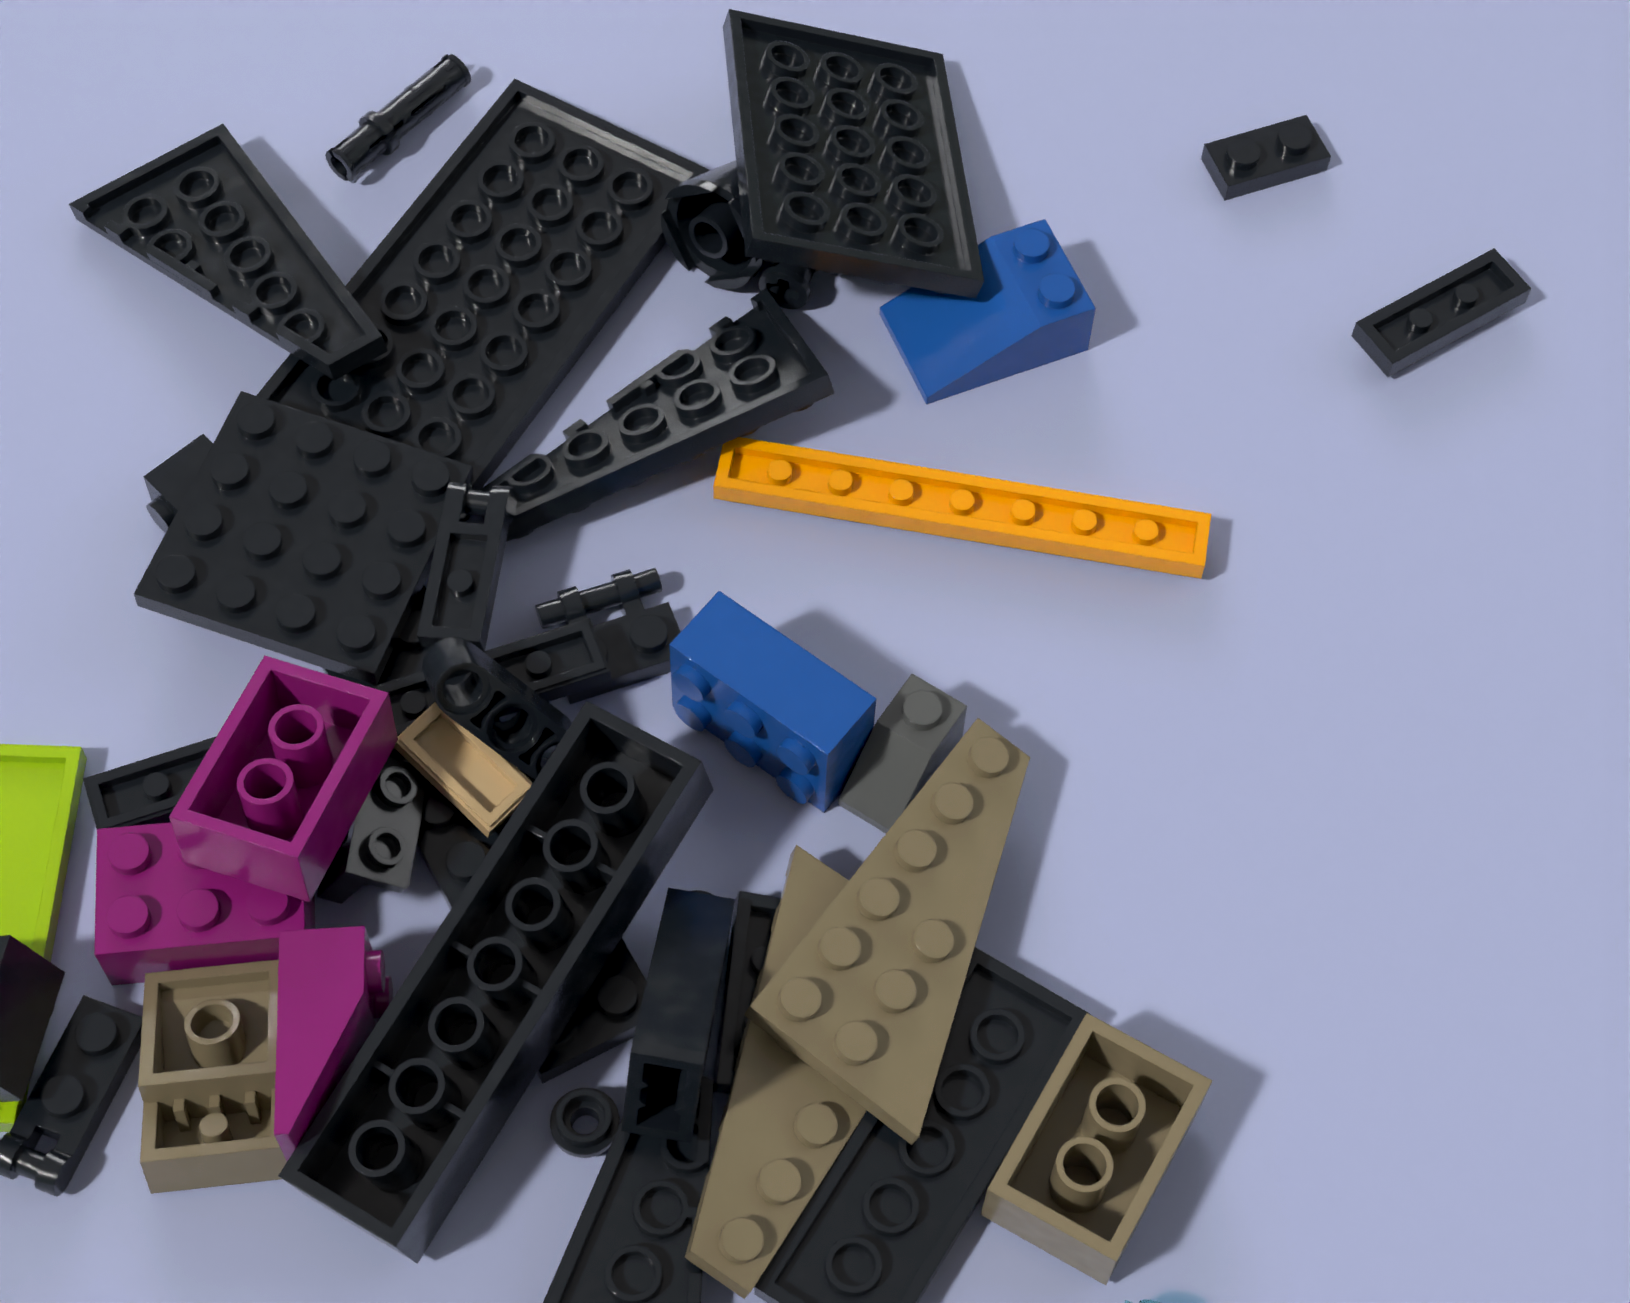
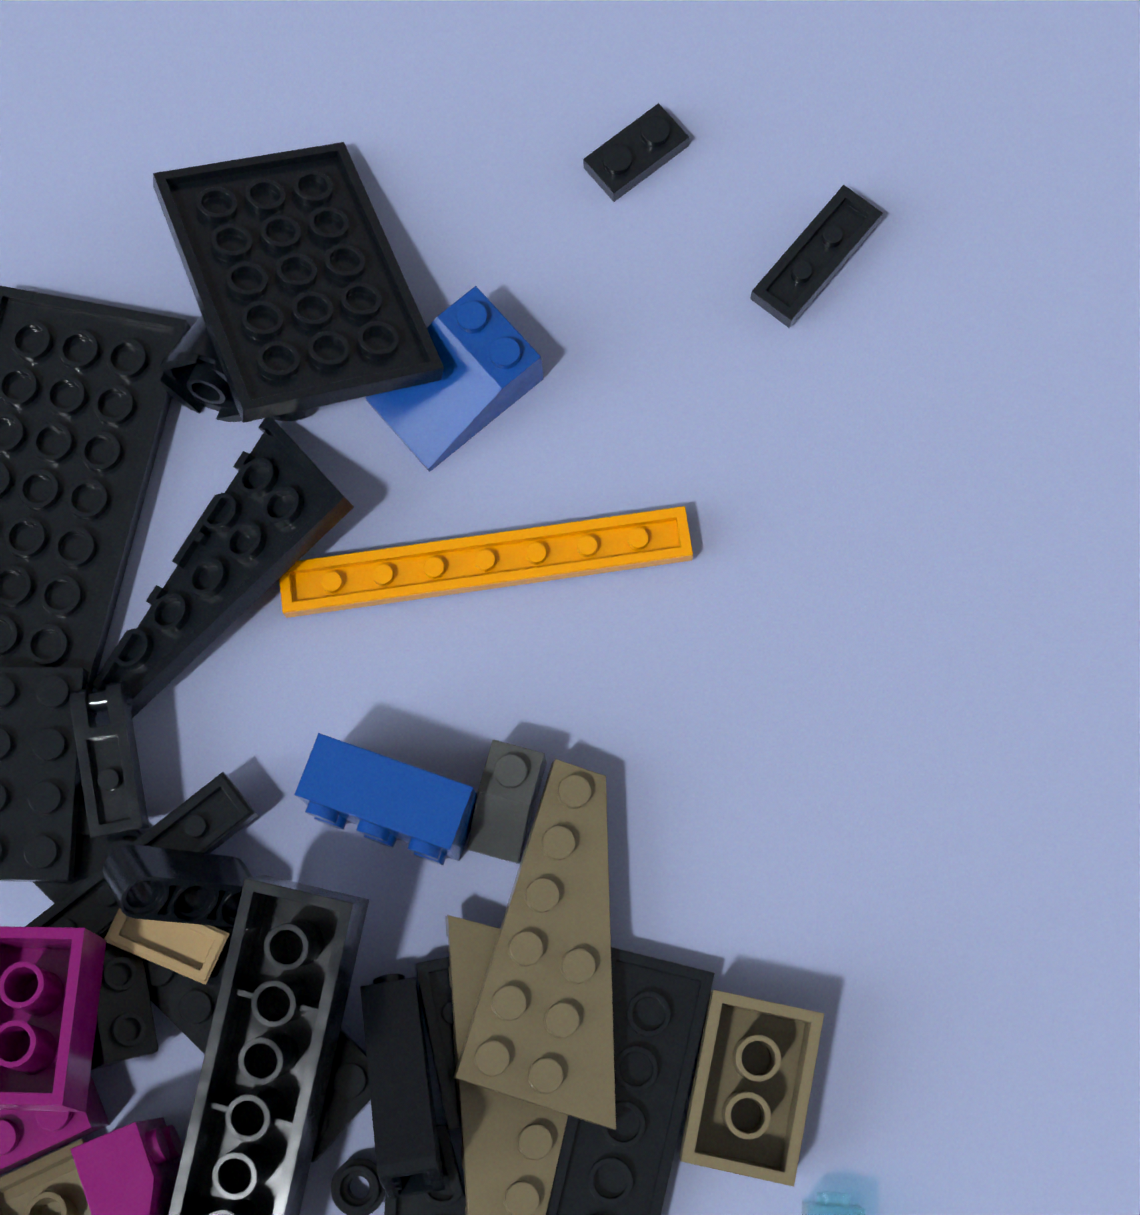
camera: 10 degrees left, 15 degrees up
(632, 644) = (261, 773): black plate -> none

